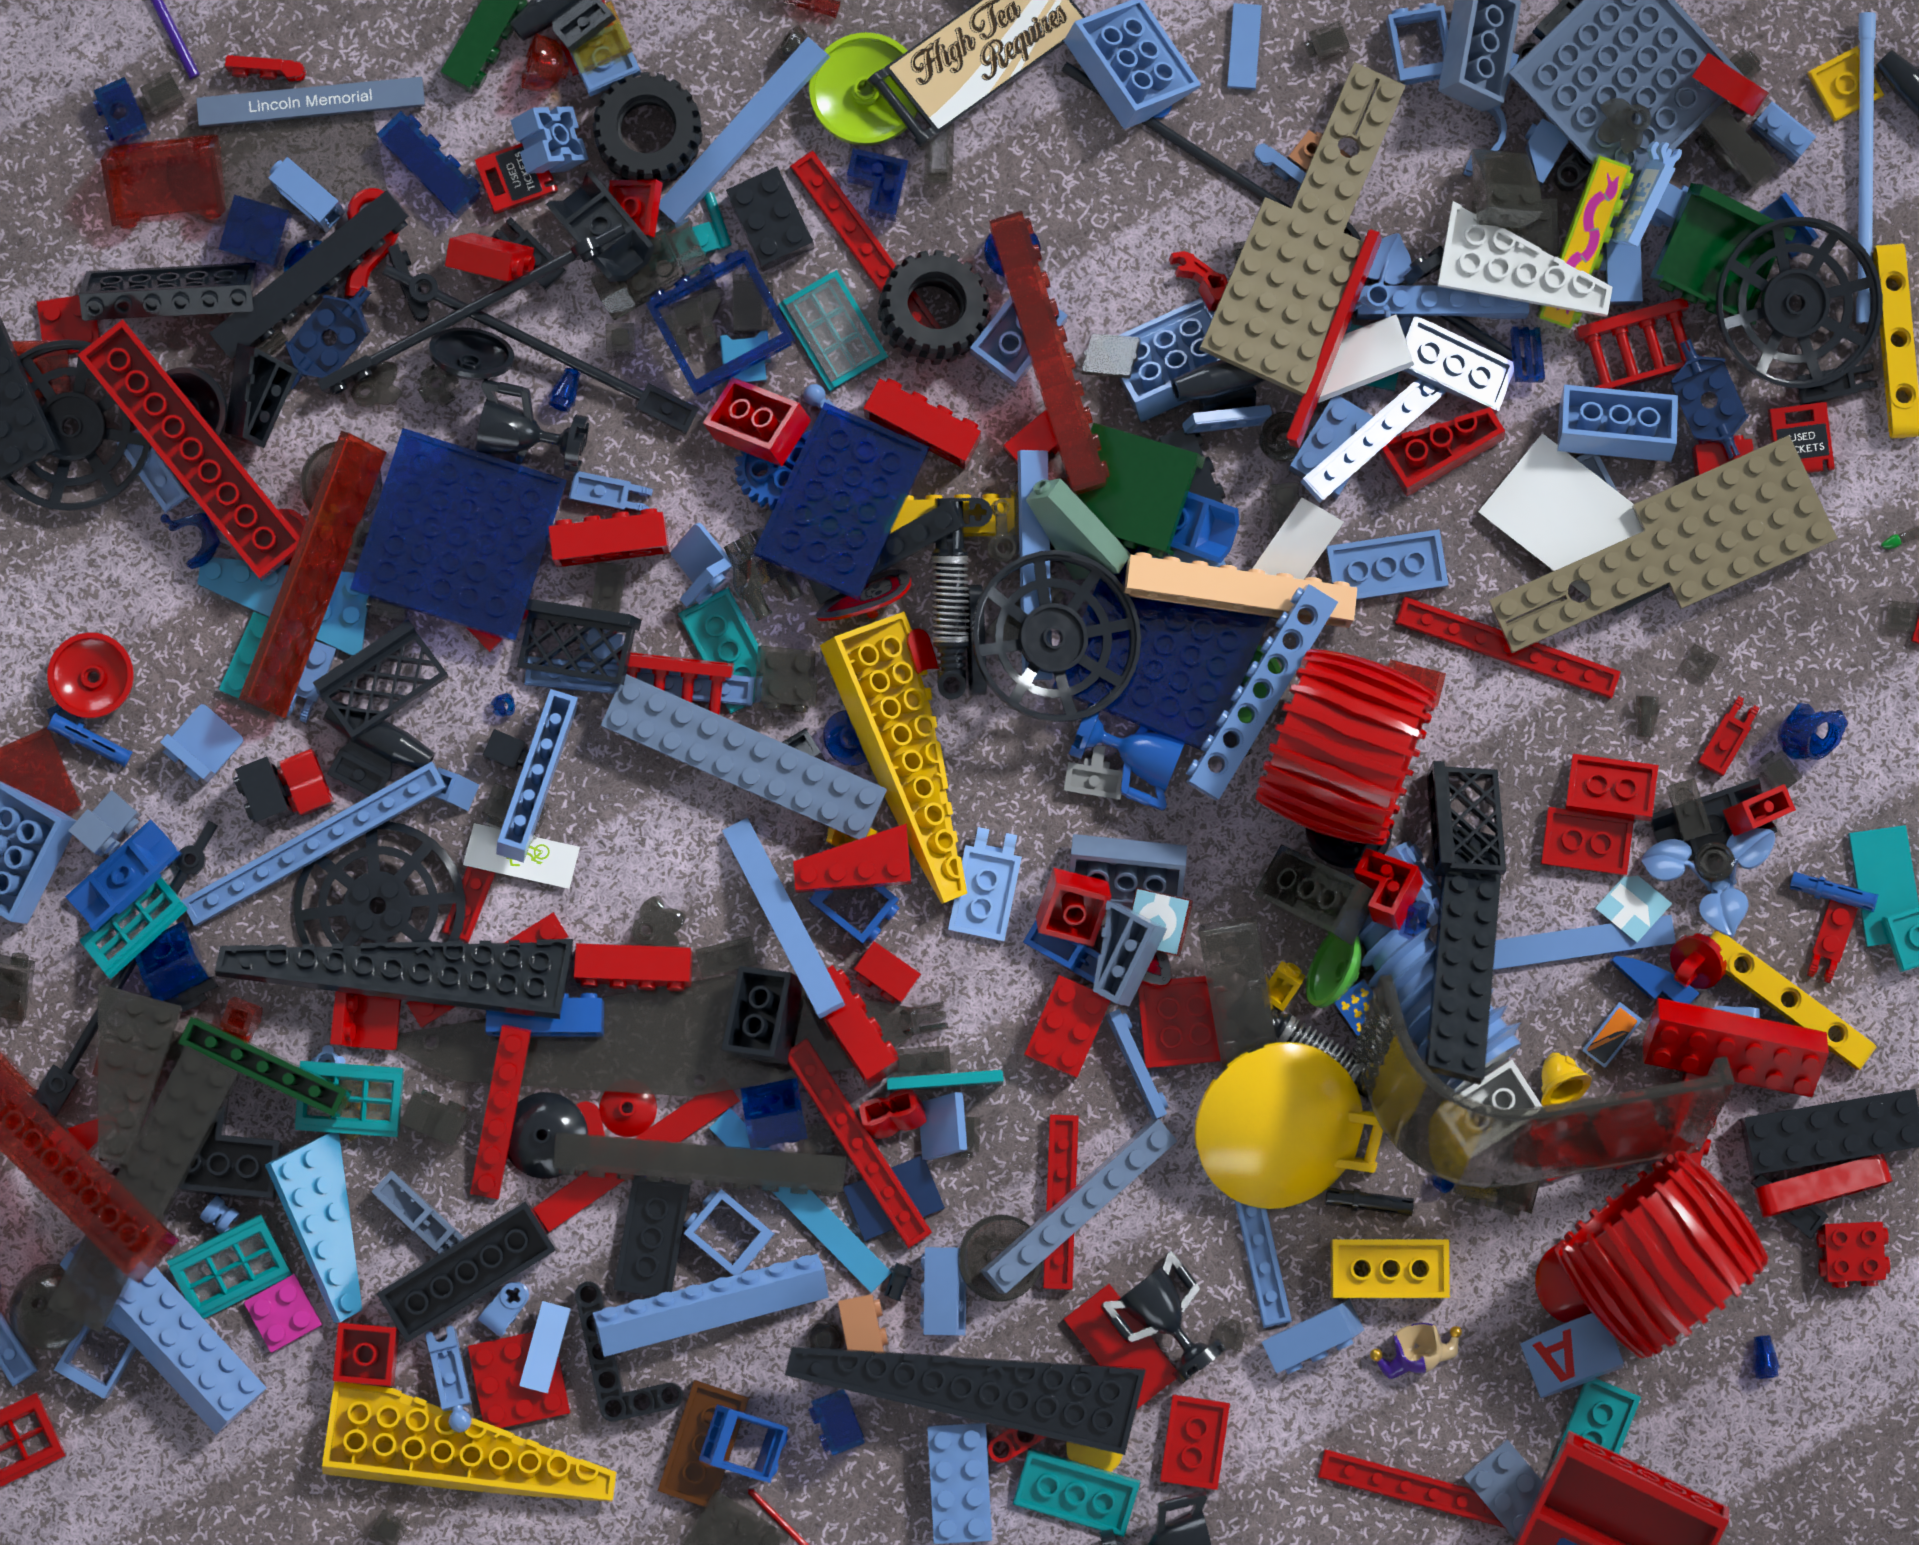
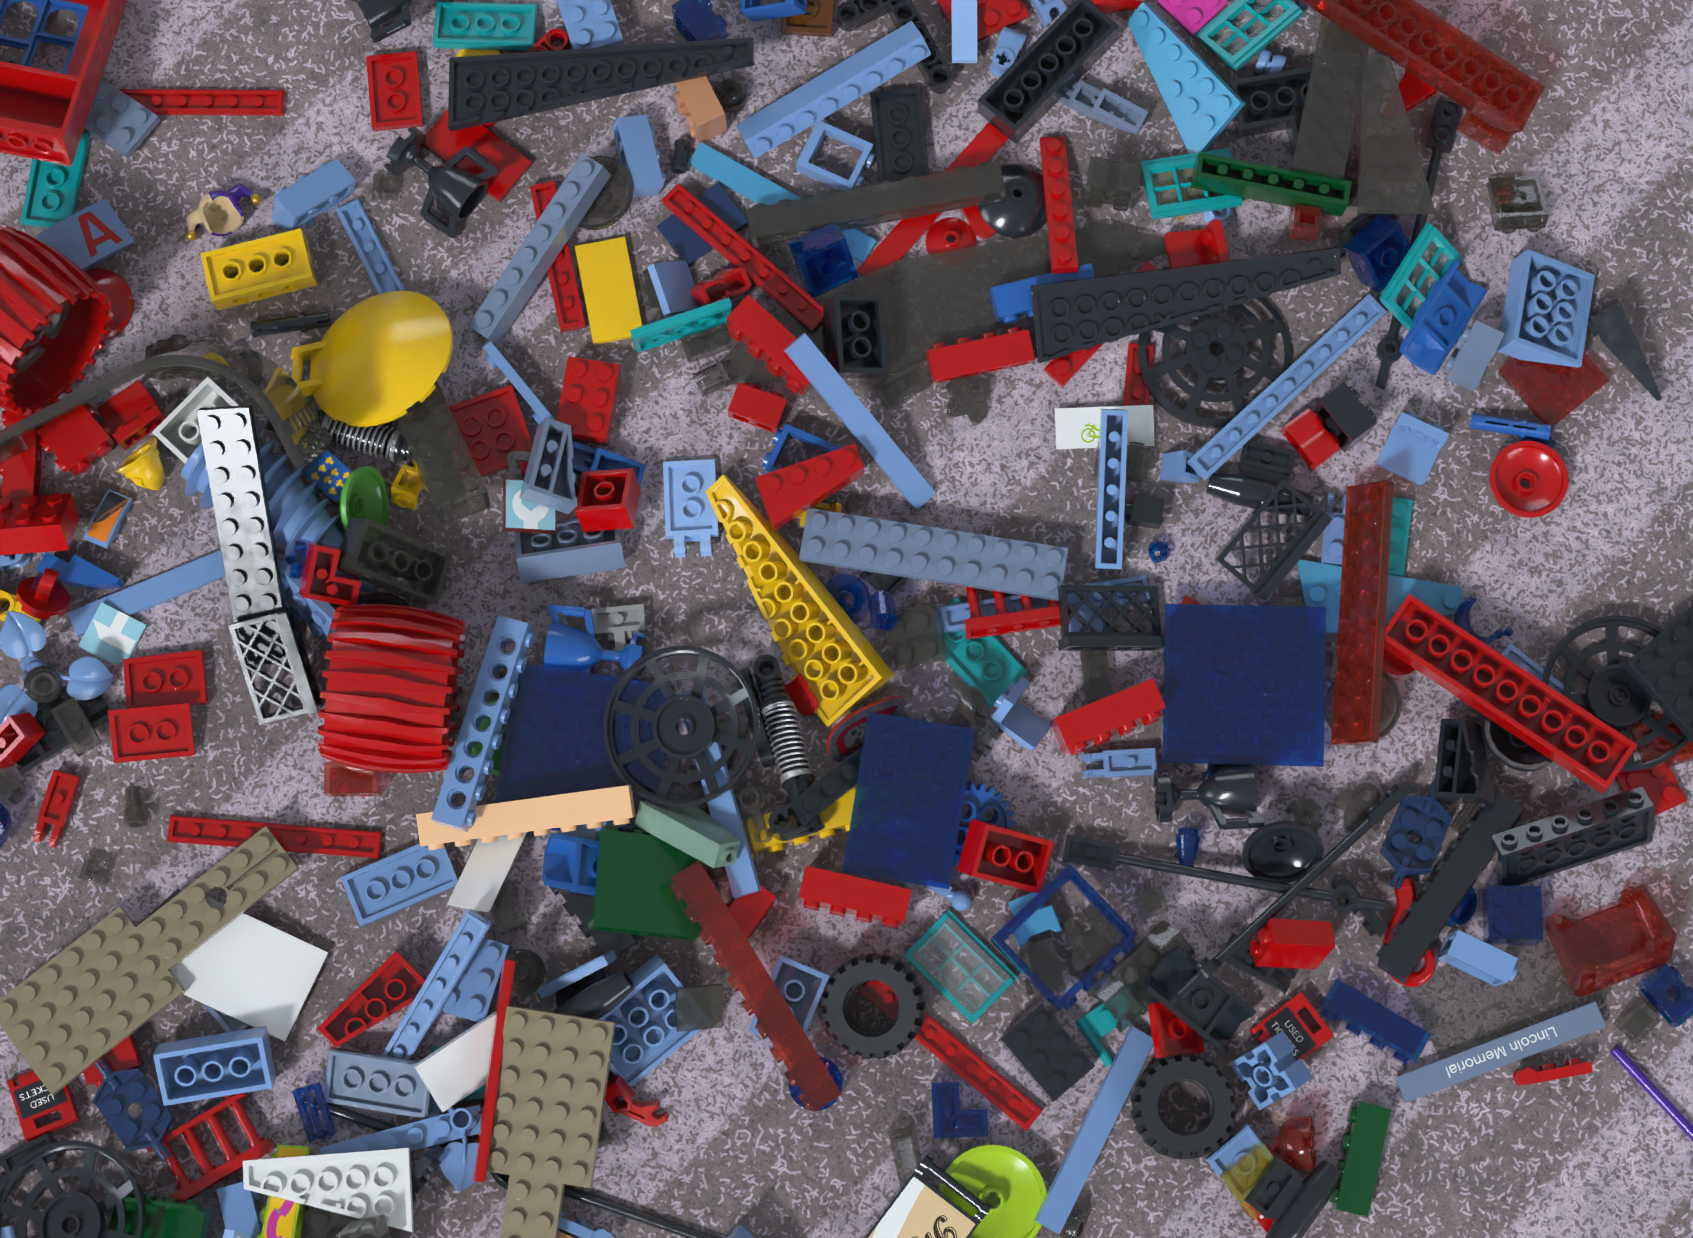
camera: 165 degrees right, 5 degrees down
(814, 709) = (882, 611): none -> clear blue brick
(1014, 1149) = (608, 289): none -> yellow tile

